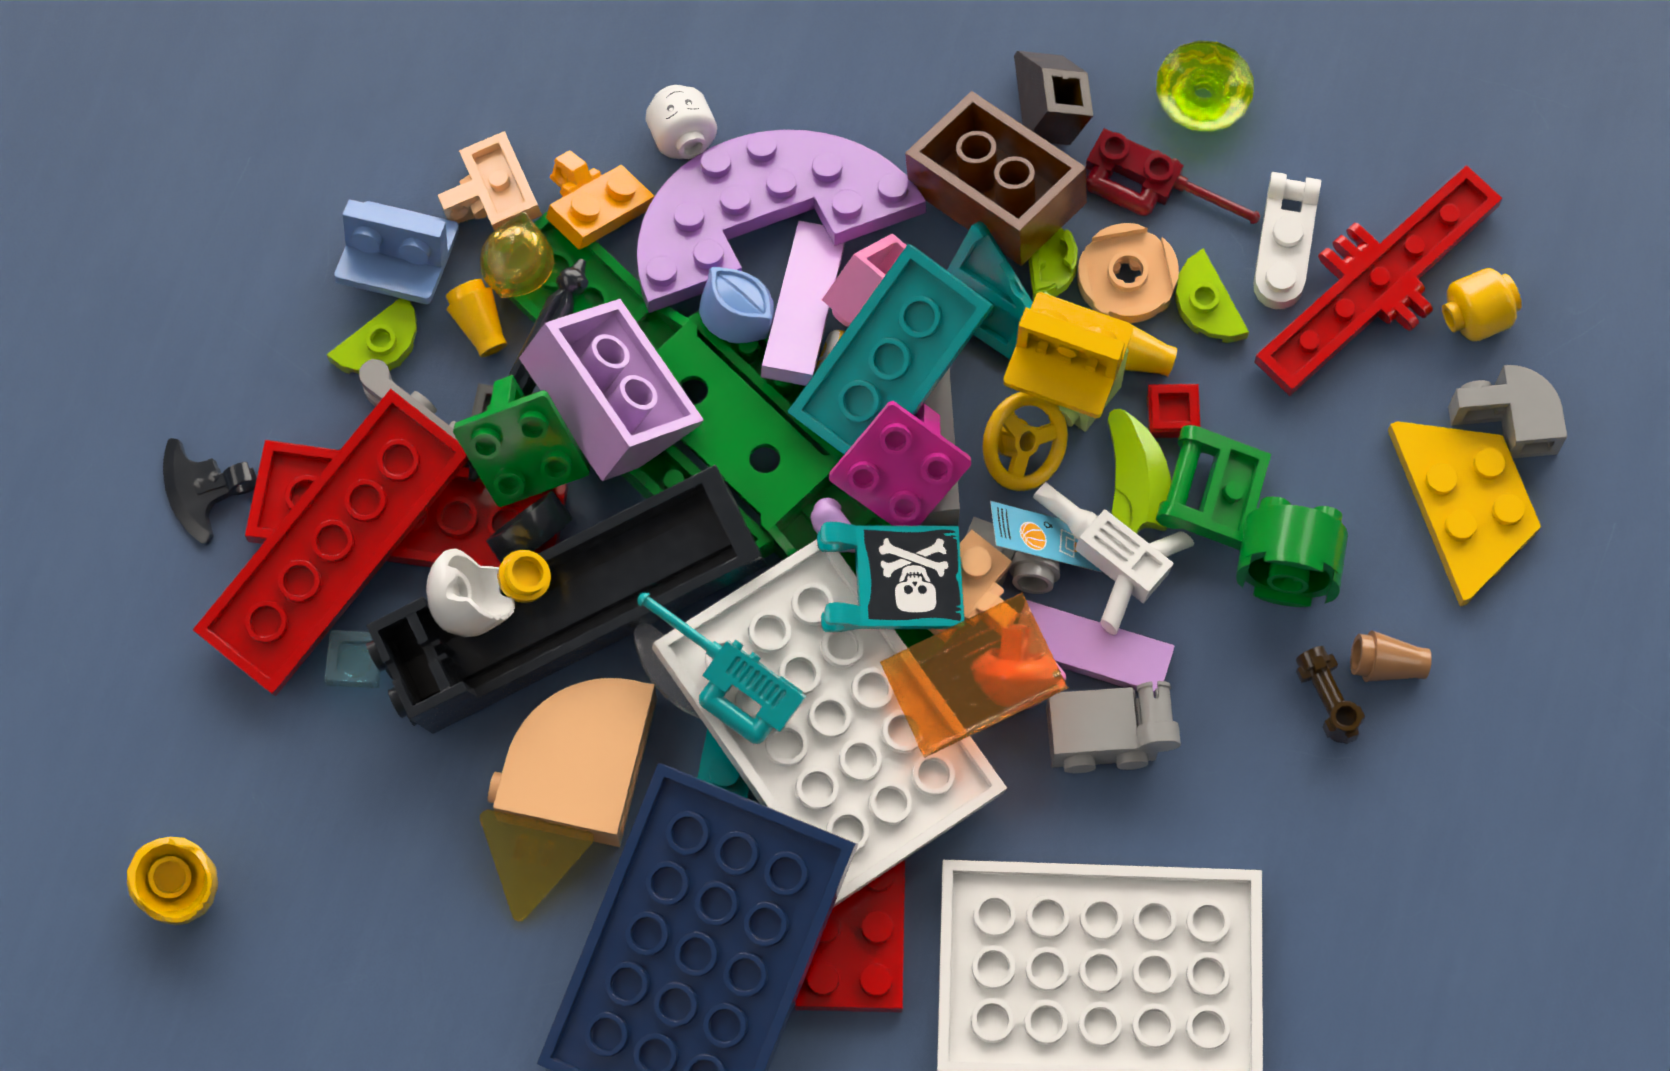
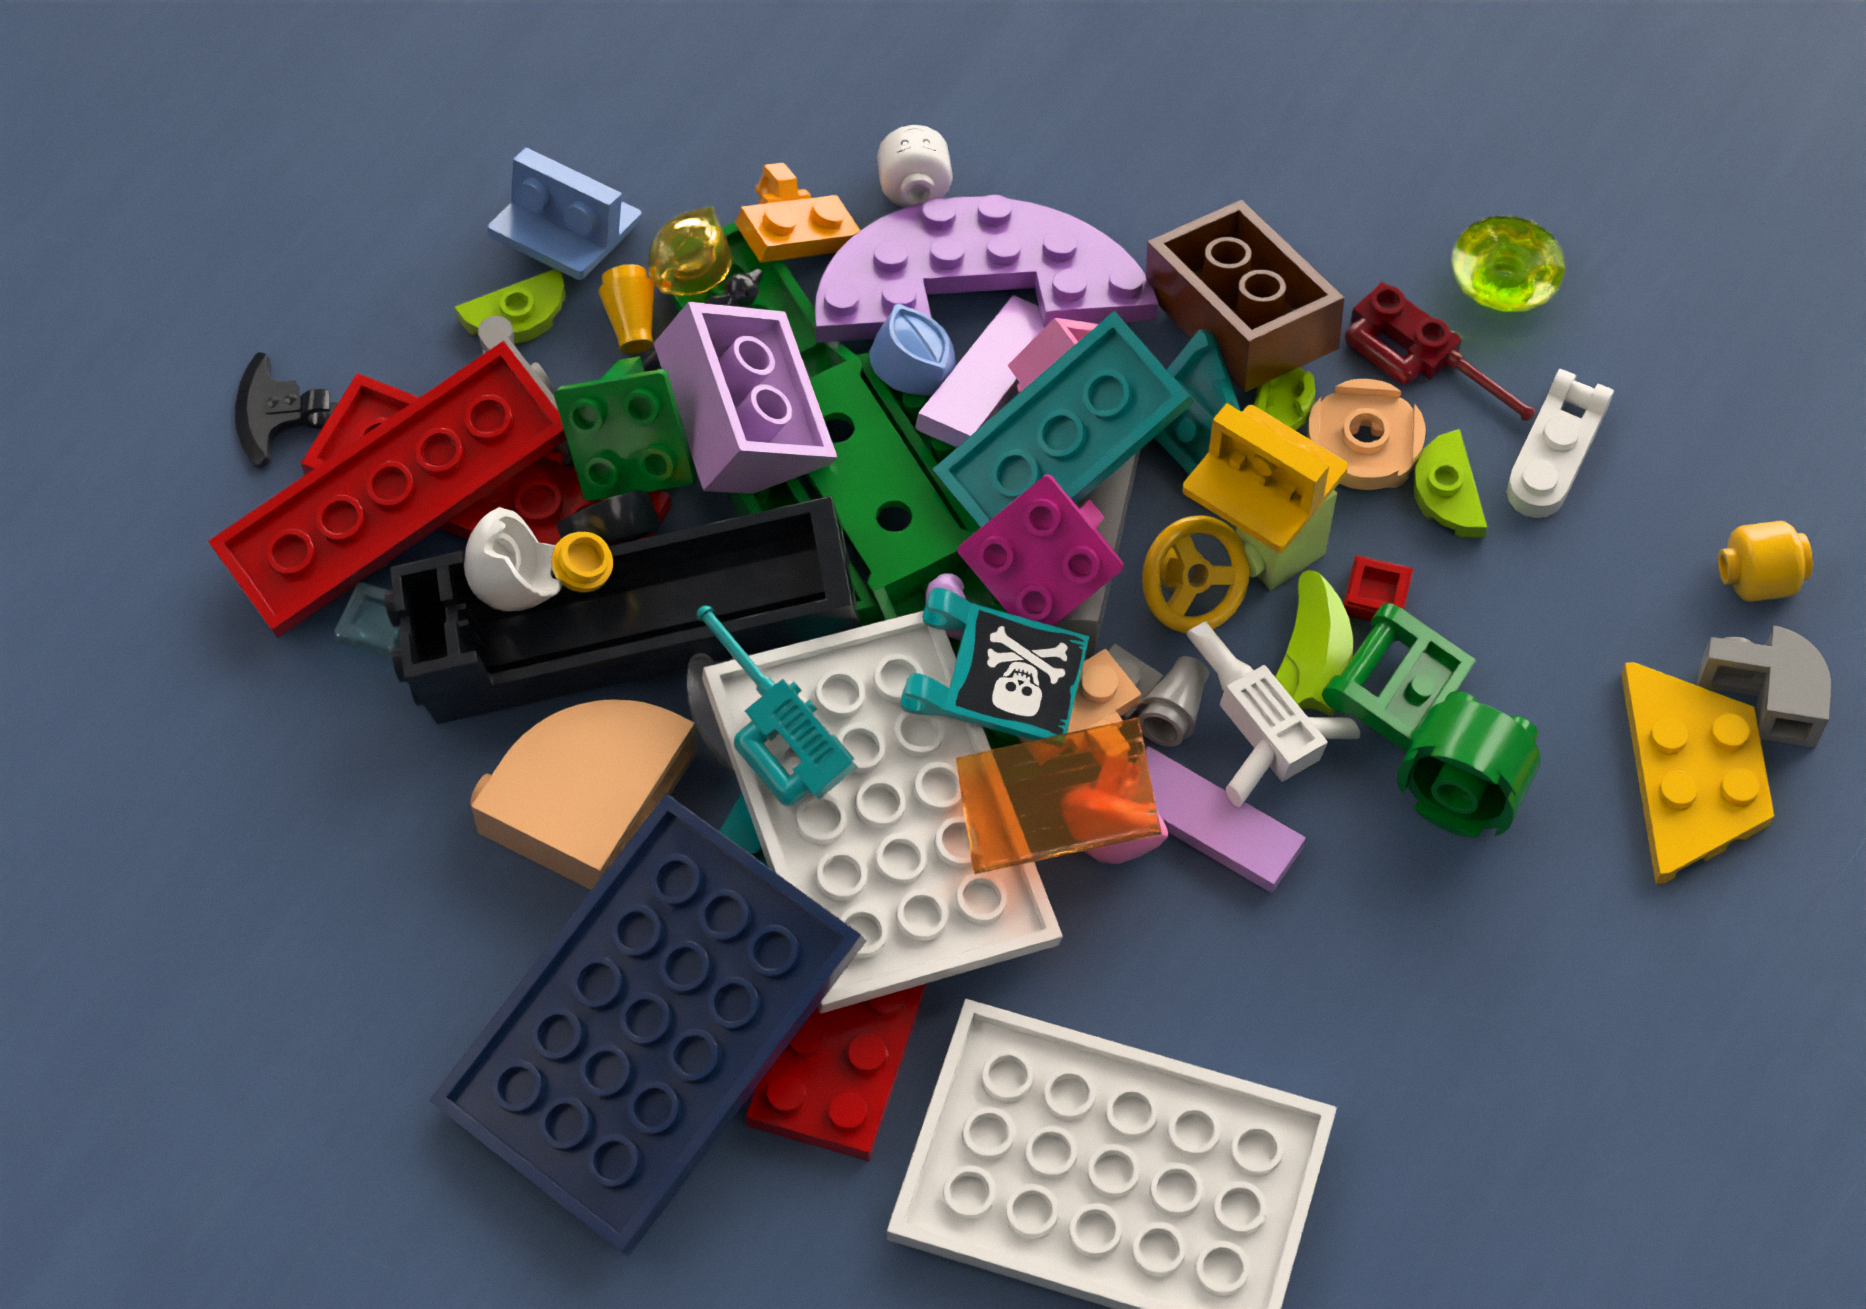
camera: 15 degrees right, 10 degrees down
(172, 880) = (93, 796): yellow hair -> none
(492, 188) = (690, 181): light nougat hinge -> none
(530, 856) = (498, 875): clear yellow piece -> none
(1036, 535) = (1178, 674): medium azure sticker -> none
(1053, 96) = (1333, 233): dark brown slope -> none
(1110, 727) = (1202, 905): light grey hinge -> none
(1149, 354) = (1360, 519): yellow cone -> none
(1343, 715) = (1483, 961): dark brown bar -> none
(1377, 279) = (1651, 508): red hinge -> none
(1386, 658) = (1552, 914): medium nougat cone -> none

